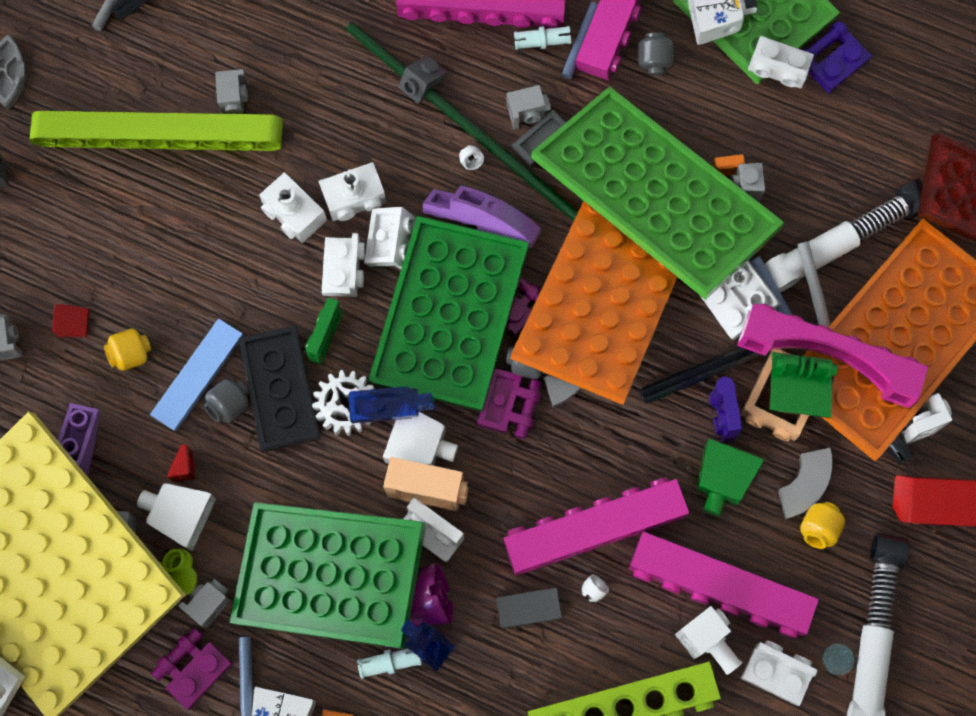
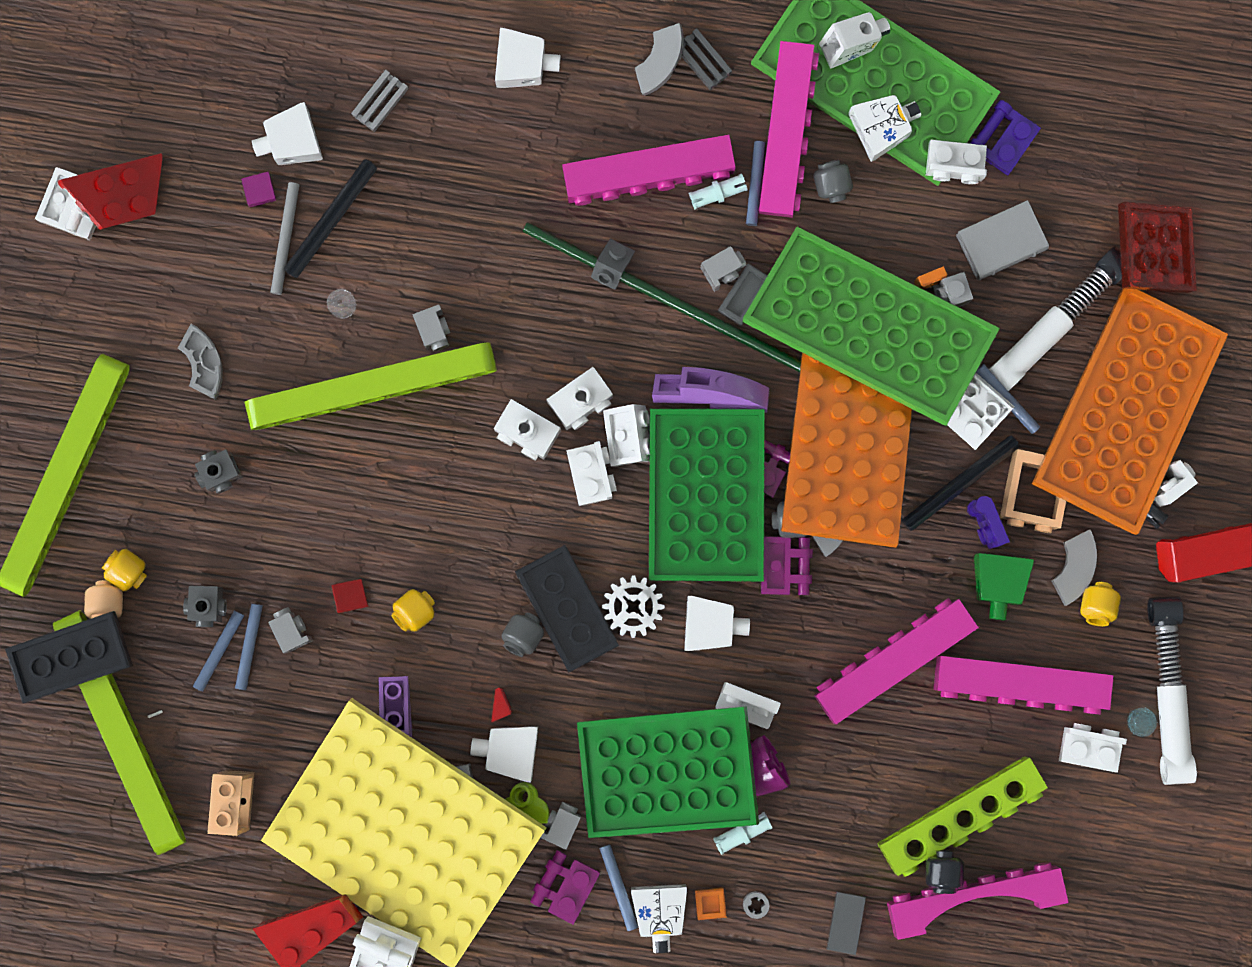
camera: 20 degrees left, 10 degrees up
(154, 51) = (343, 309): none -> clear tile
(196, 375) = (485, 615): light blue tile -> none
(324, 331) = (593, 532): green plate -> none
(387, 404) = (676, 602): clear blue hinge -> none
(426, 483) = (733, 666): light nougat window -> none
(427, 644) = (775, 811): clear blue hinge -> none
(472, 164) = (683, 333): white hinge -> none
(528, 608) = (853, 750): dark grey tile -> none
(595, 588) = (909, 716): white hinge -> none
(707, 635) = (1022, 734): white brick -> none
(801, 384) = (1053, 484): green hinge -> none
(808, 148) = (1002, 240): none -> light grey piece
(814, 283) = (1041, 380): light grey bar -> none
(895, 376) = (1139, 453): dark pink arch -> none

